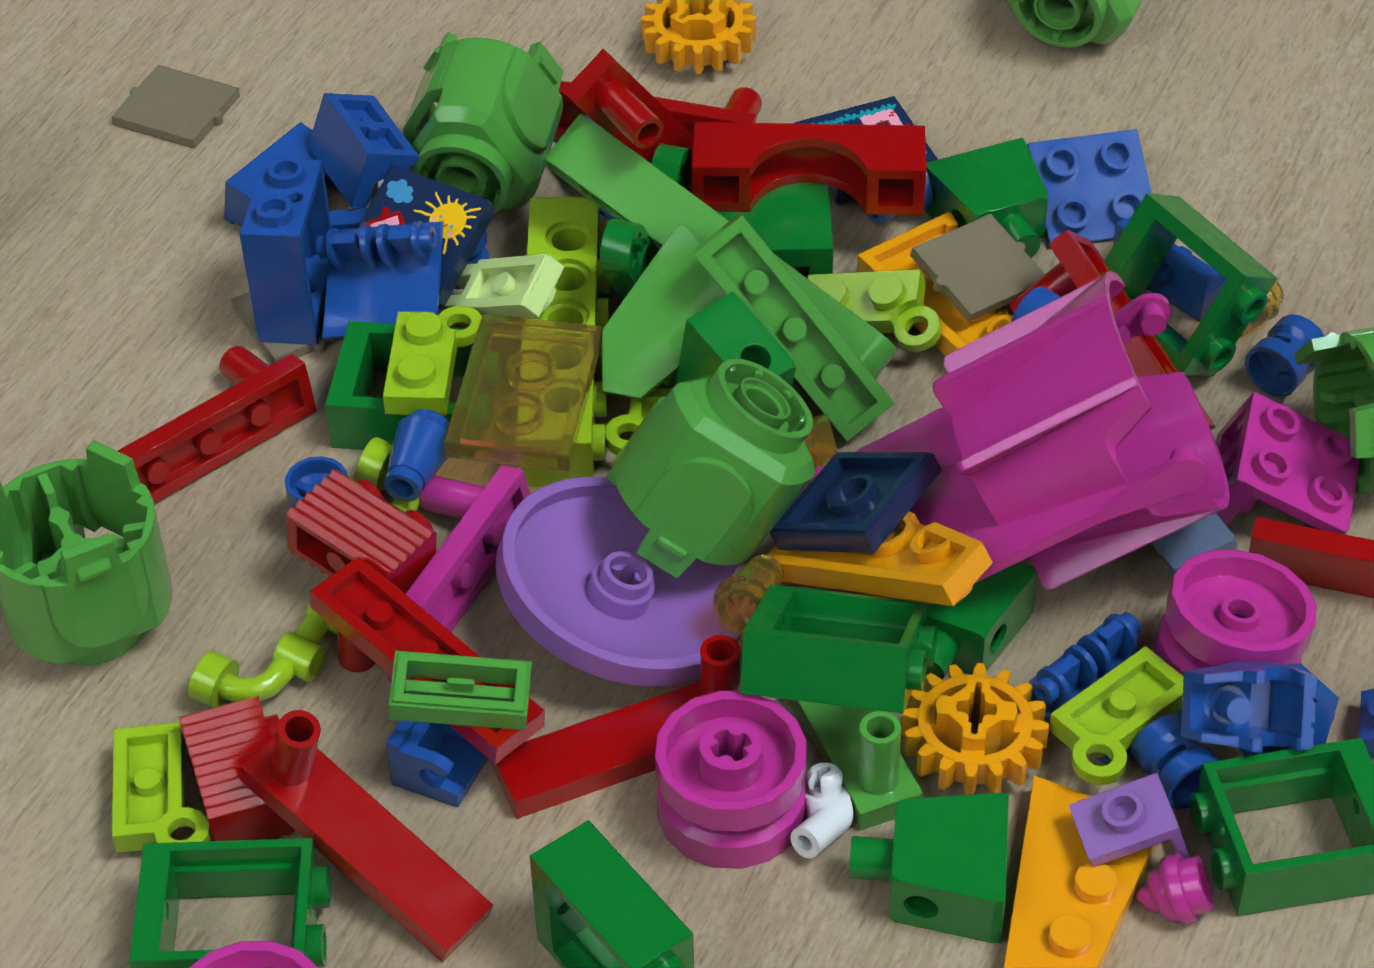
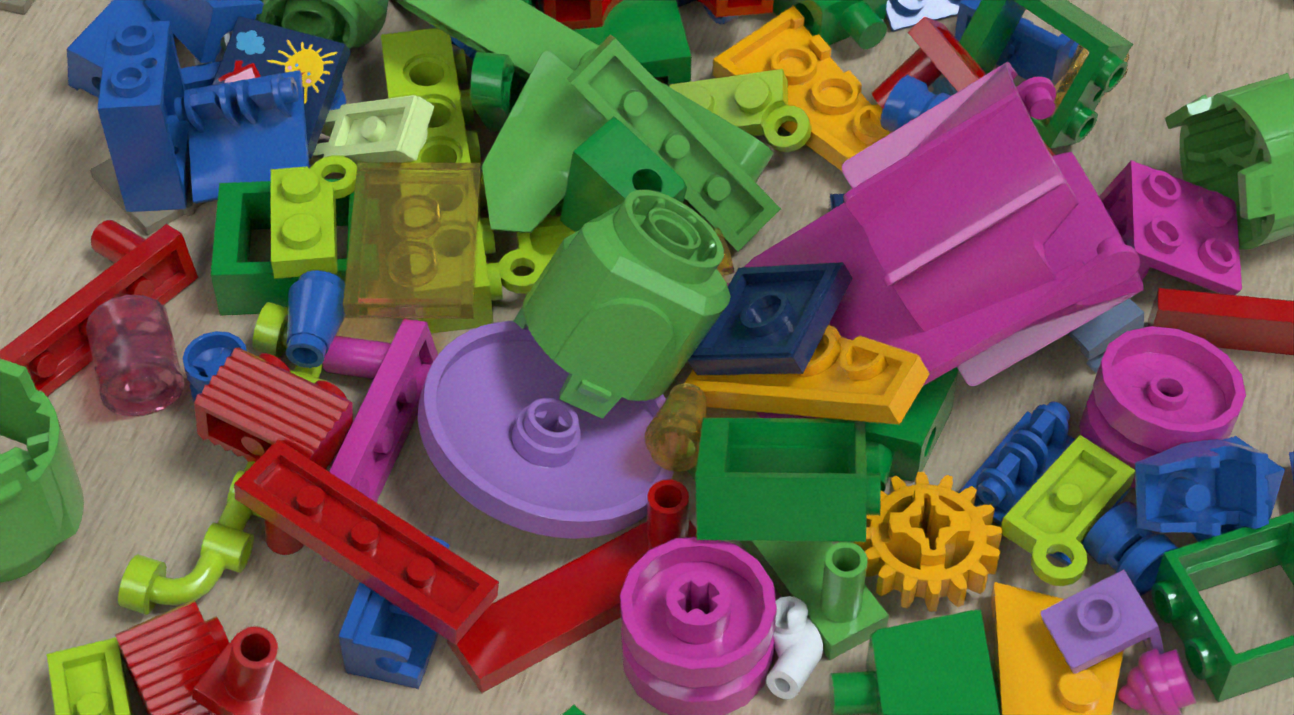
camera: 10 degrees left, 5 degrees up
(241, 472) = (134, 355): none -> clear pink wheel
(459, 699) = (409, 583): bright green tile -> none
(977, 266) = (835, 60): dark tan piece -> none
(1272, 359) = (1143, 112): blue wheel -> none

